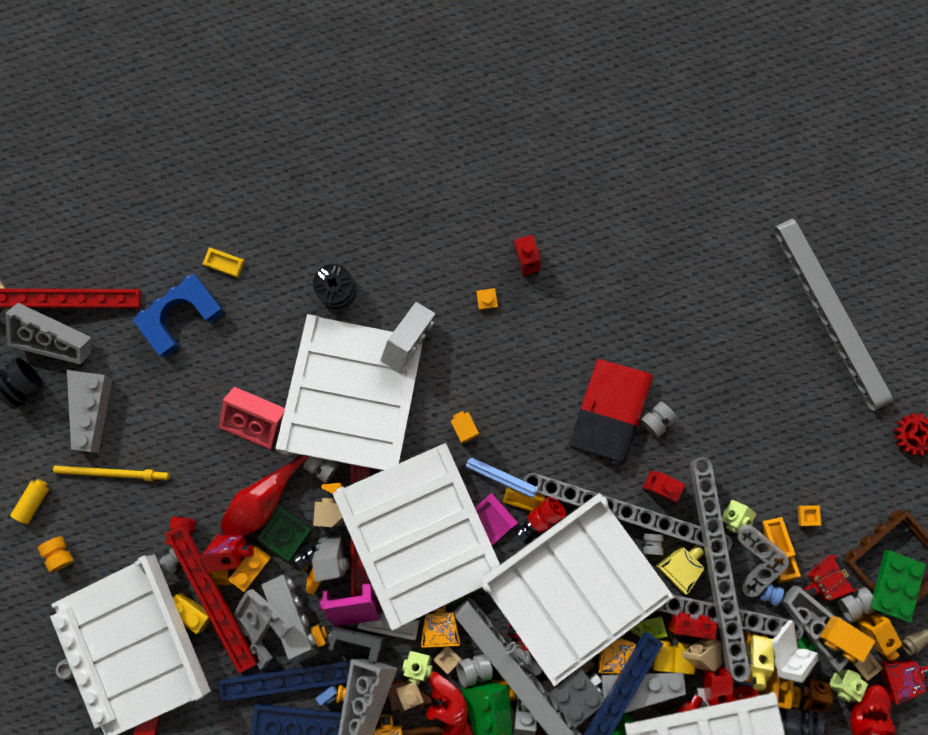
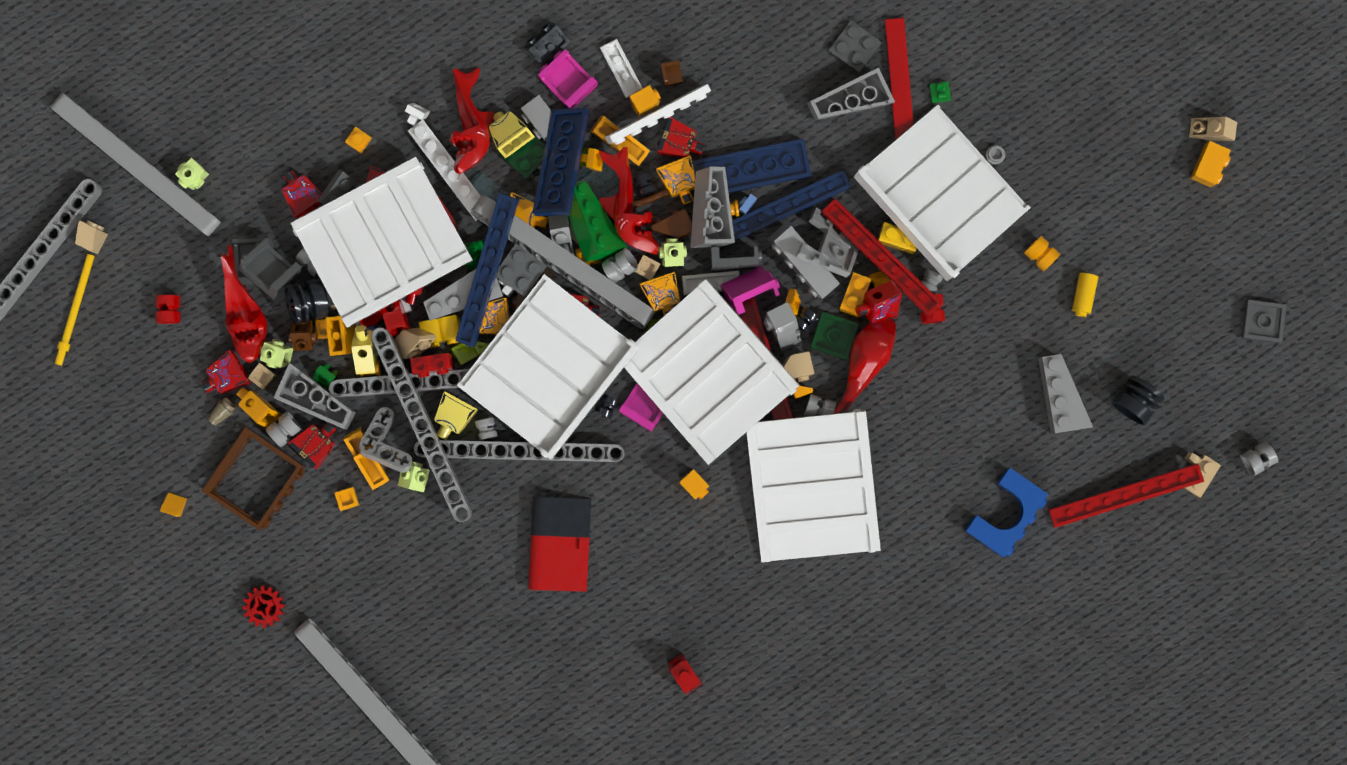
camera: 160 degrees right, 5 degrees up
(45, 336) = (1126, 453): light grey wedge -> none
(82, 667) = (980, 161): white plate -> none
(147, 475) = (983, 351): yellow bar -> none
(223, 262) = (981, 579): yellow tile -> none
(251, 417) = (901, 435): coral slope -> none
(320, 634) = (771, 255): light orange plate -> none
(338, 296) = (857, 575): black wheel -> none
(407, 336) = (775, 558): wedge -> none
(410, 695) = (671, 227): tan plate -> none
(487, 299) = (710, 618): light orange plate -> none
(502, 477) = (645, 448): light blue axle -> none
(523, 501) = (619, 435): yellow tile -> none
(523, 658) = (578, 289): light grey pin -> none
(547, 515) = (593, 425): red wheel -> none
(659, 419) = (511, 548): light grey wheel -> none
(664, 486) = (490, 485): red torso -> none
(772, 594) = (364, 415): medium blue wheel -> none
(789, 660) = (338, 361): white bracket -> none
(847, 639) = (291, 394): light orange brick -> none
(897, 586) = (253, 456): green plate -> none

